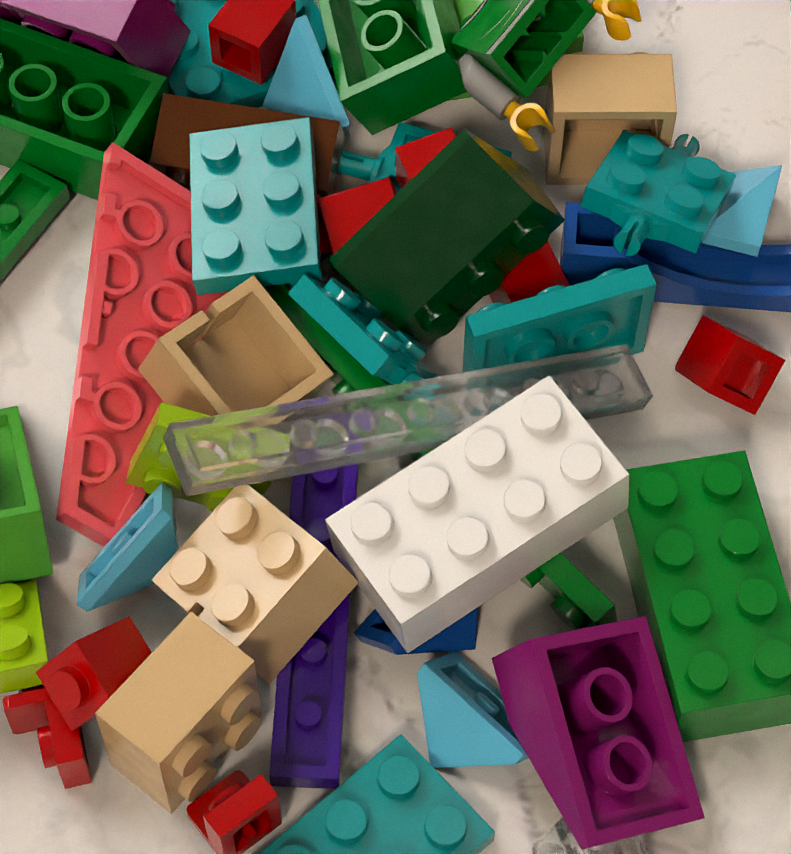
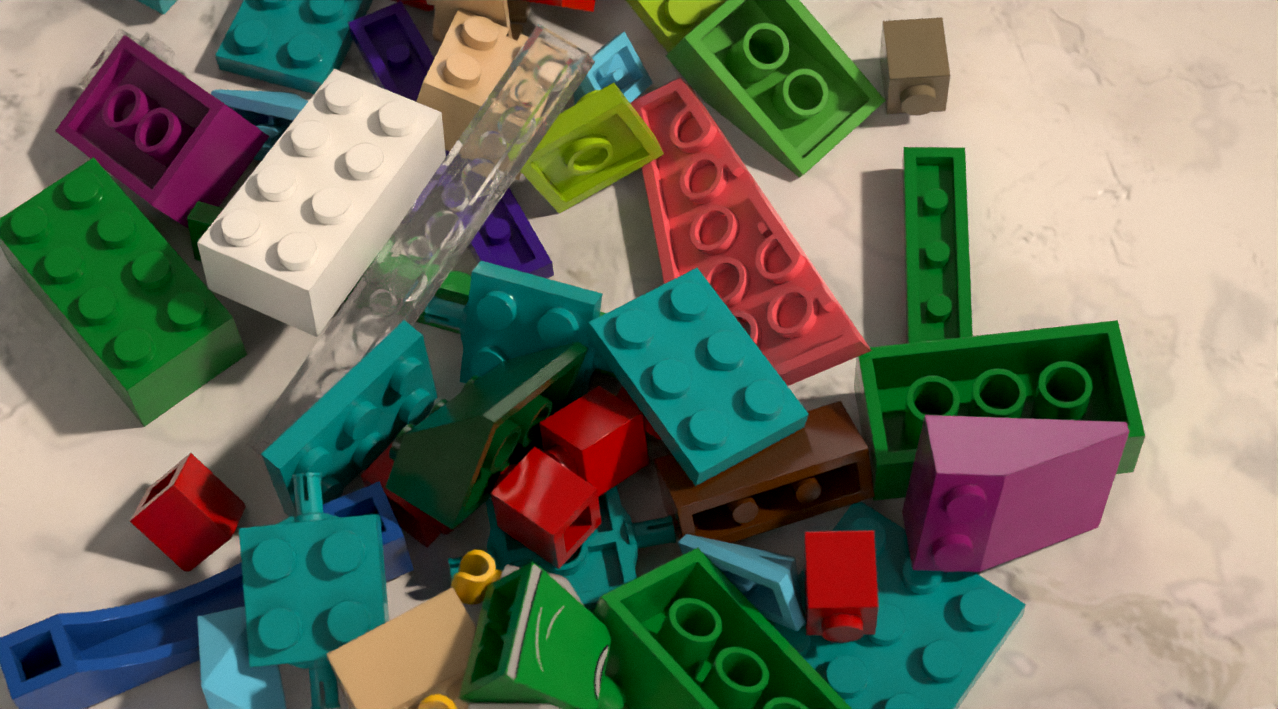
camera: 155 degrees right, 0 degrees up
(241, 358) = (616, 230): tan piece -> none

